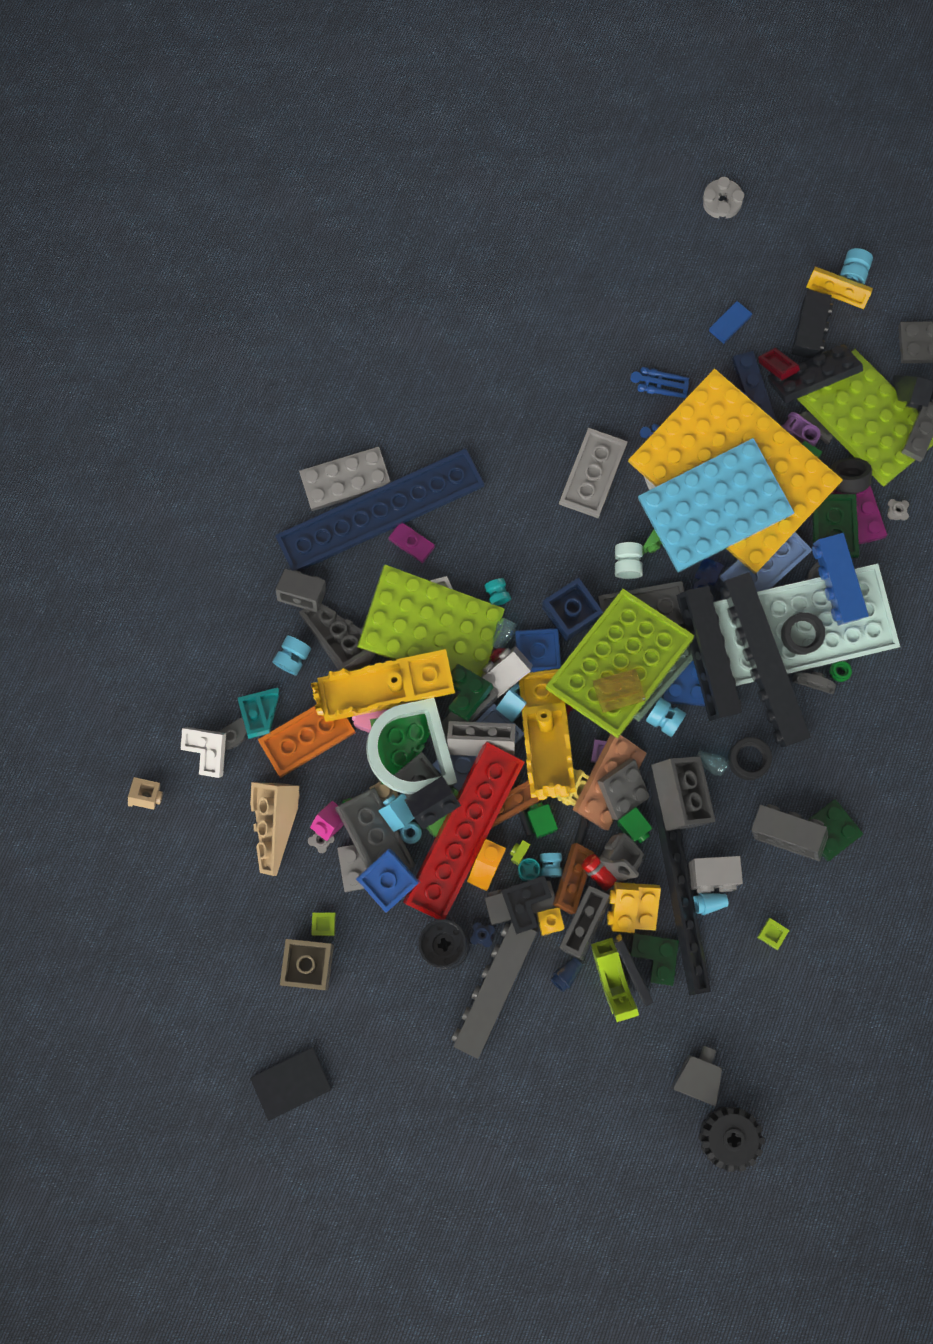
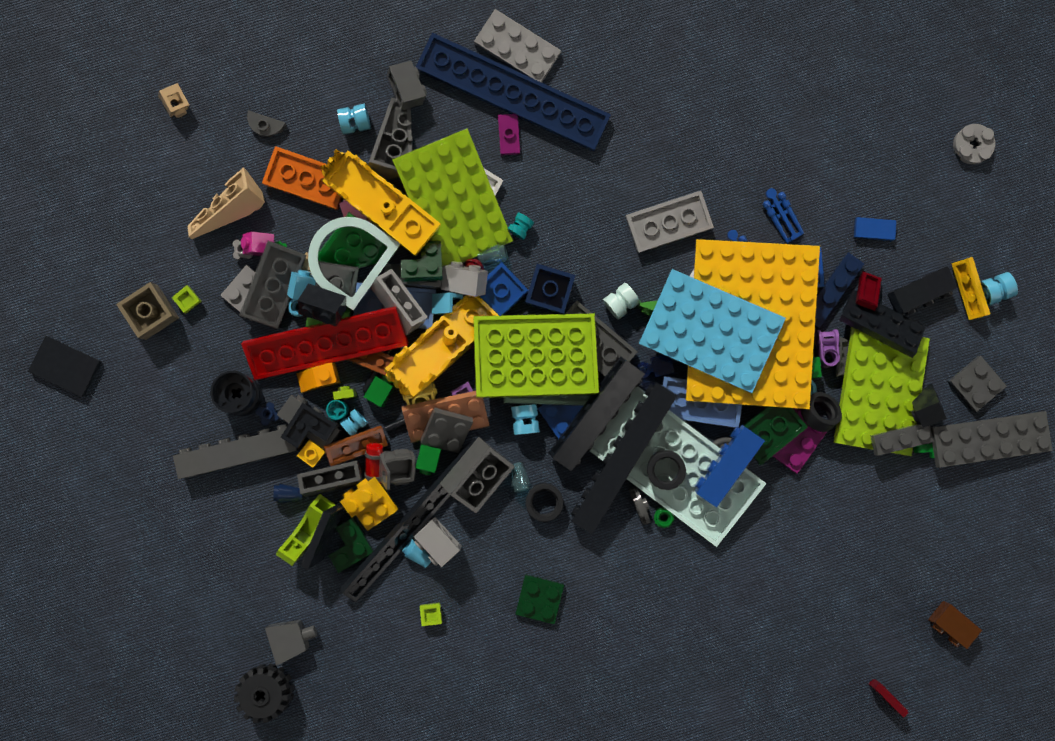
camera: 45 degrees right, 10 degrees up
(211, 747) = (243, 116): white plate -> none
(258, 711) = (295, 130): teal wing -> none
(388, 880) = (246, 318): blue plate -> none
(619, 690) = (510, 371): clear yellow plate -> none
(790, 832) = (509, 572): dark grey brick -> none
(893, 514) = (818, 466): light grey plate -> none

